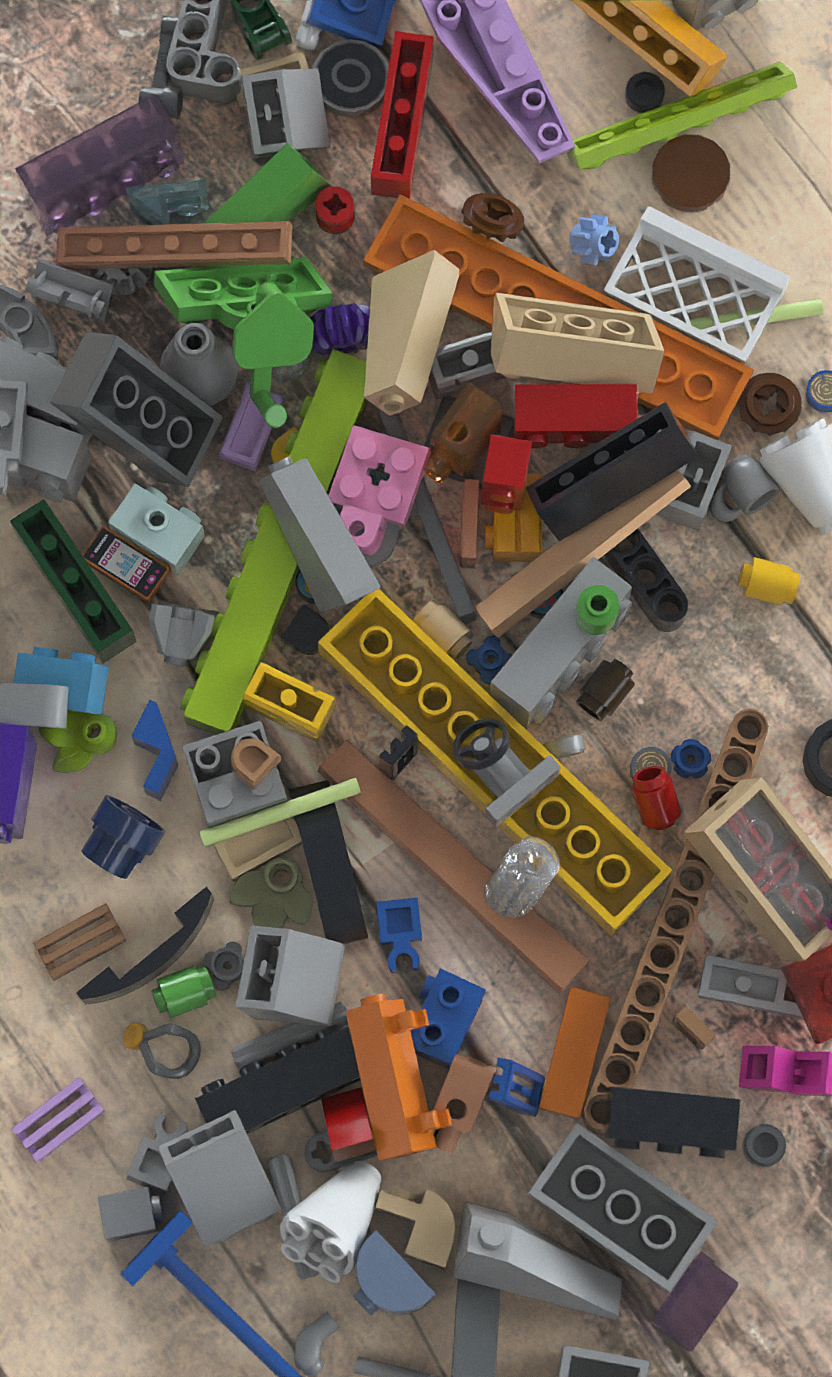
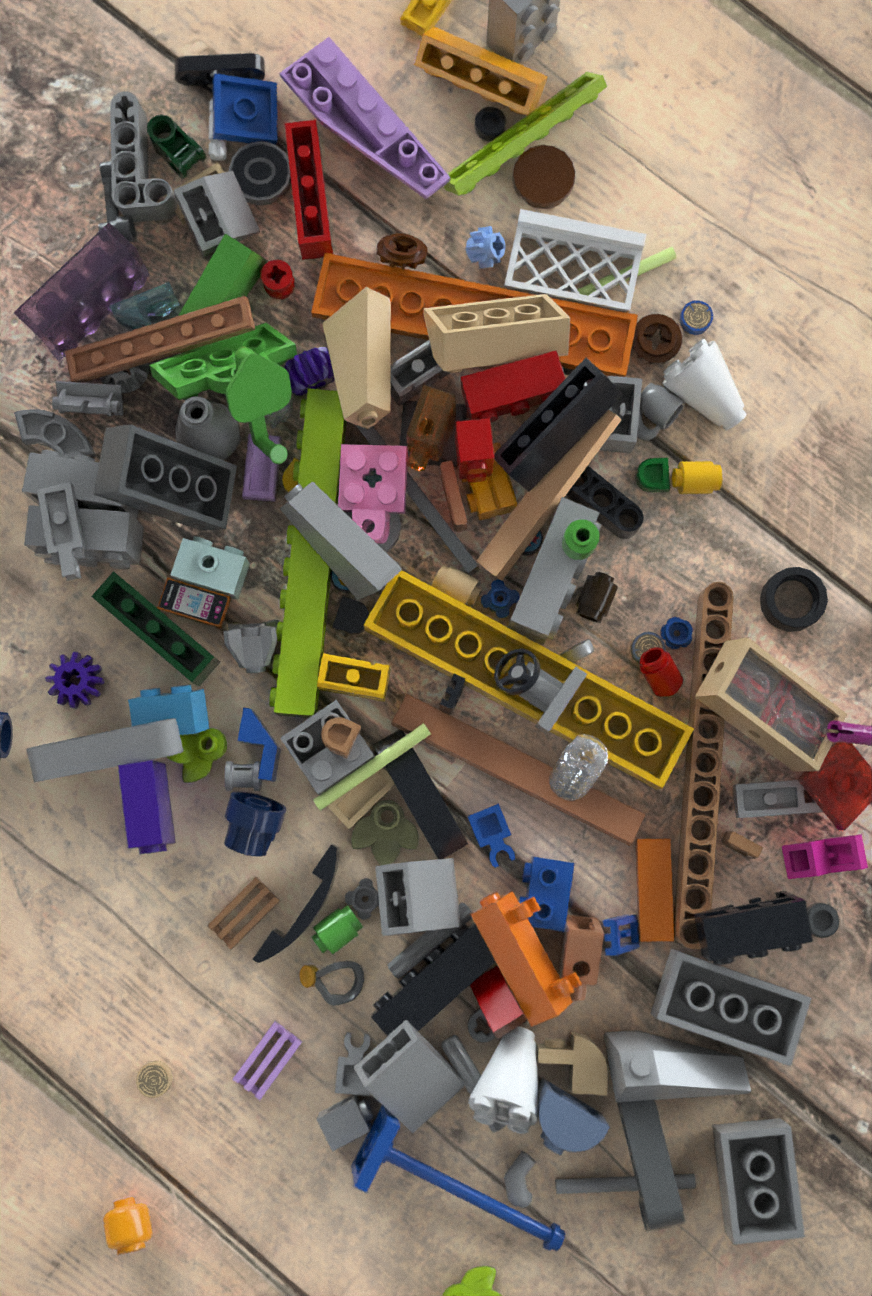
camera: 15 degrees left, 5 degrees up
(124, 781) = (242, 776): none -> light grey bush
(694, 1302) = (807, 1064): clear purple panel -> none
(718, 565) = (653, 475): none -> green tile

